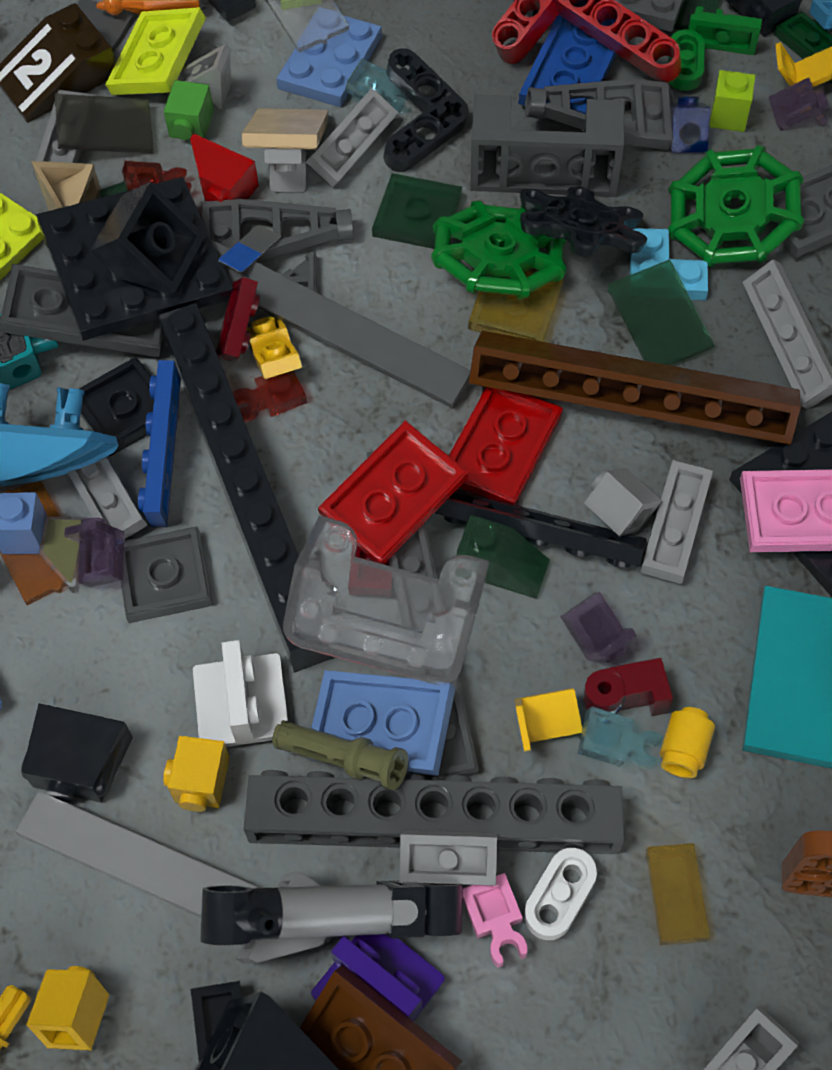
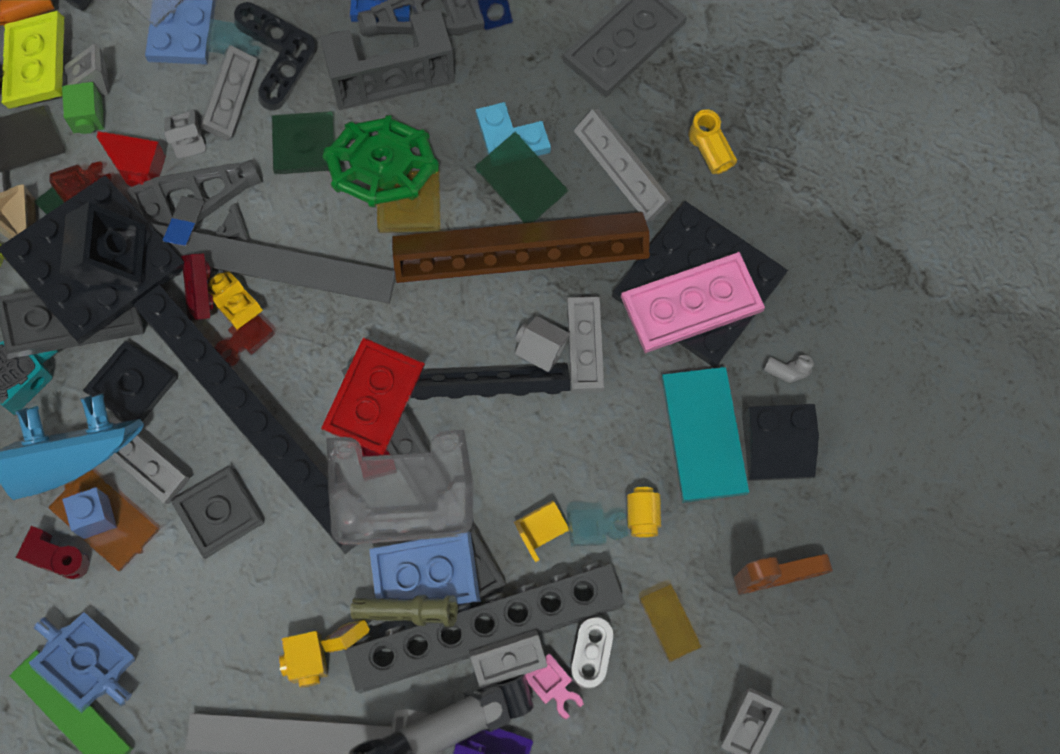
camera: 25 degrees left, 10 degrees up
(60, 552) = (132, 518): olive tile -> none
(74, 753) = (206, 677): black torso -> none
(99, 551) = (163, 515): clear purple bracket -> none
(159, 458) = (179, 424): blue plate -> none
(239, 697) = (313, 590): white bracket -> none
(256, 762) = (345, 636): none -> yellow tile
(285, 128) = (172, 104): tan tile -> none
(504, 442) = (437, 322): red tile -> none
(513, 560) = (469, 413): clear green slope -> none
(581, 221) = (451, 115): black plate -> none
(597, 629) = (555, 449): clear purple bracket -> none
(629, 687) = (590, 485): dark red leg -> none
(740, 223) = (564, 77): green plate -> none

